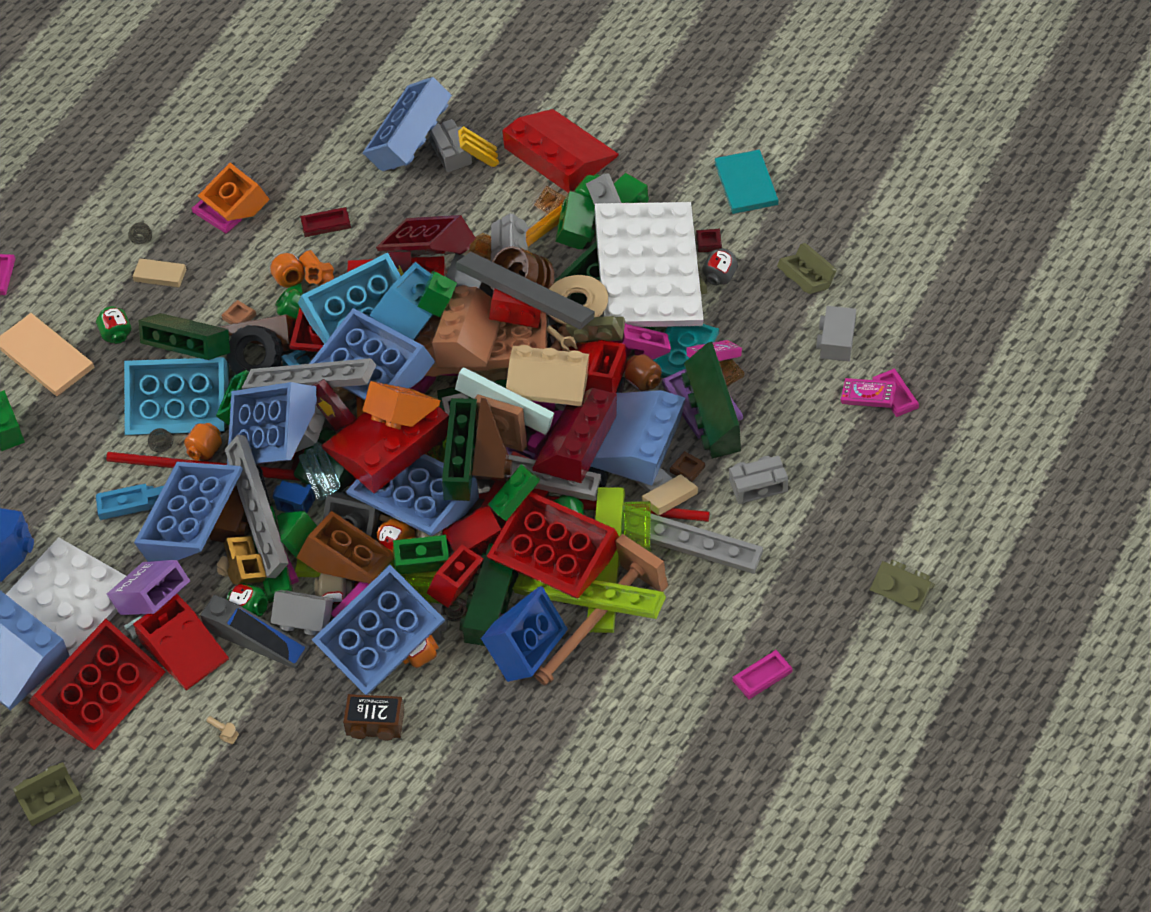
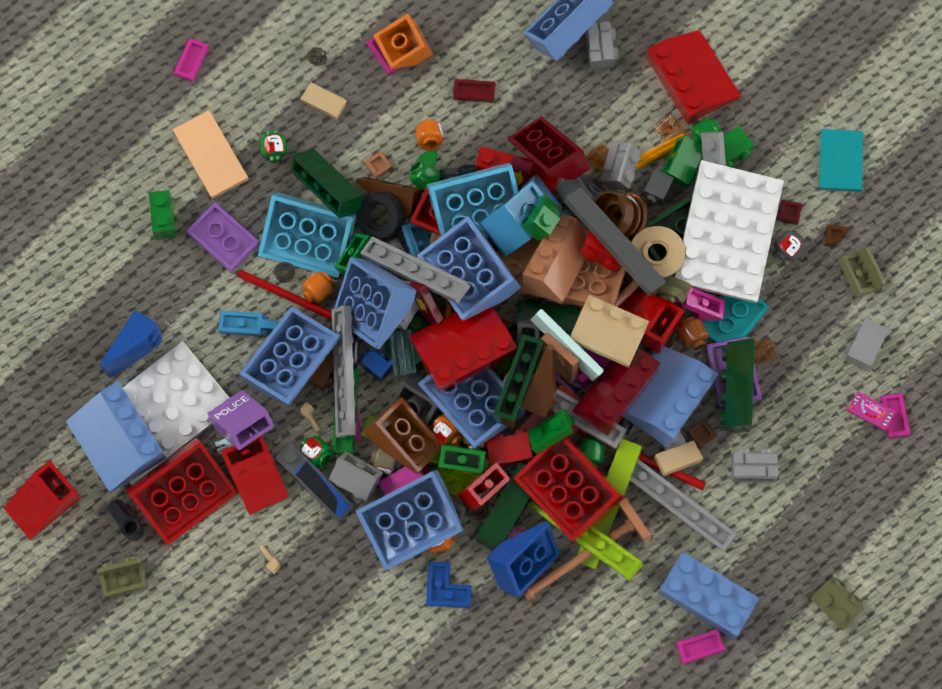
camera: 15 degrees right, 20 degrees up
(36, 734) = (124, 519): none -> black piece
(79, 427) = (223, 237): none -> medium lavender tile
(243, 561) = (321, 419): pearl gold brick -> none
(295, 529) = (369, 403): green slope -> none
(316, 271) = (454, 147): orange axle -> none
(374, 716) = (387, 589): brick -> none
(397, 404) = (479, 328): orange slope -> none
(444, 706) = (441, 592): none -> blue tile
(478, 147) = (622, 53): yellow tile -> none
(558, 250) = (658, 187): none -> dark grey brick
(565, 341) = (633, 287): tan hand -> none
(638, 522) = (642, 483): clear neon green tile -> none
(724, 350) = (760, 331): dark pink tile -> none
(752, 617) = (708, 595): none -> medium blue brick
(765, 247) = (835, 234): none -> reddish brown tile

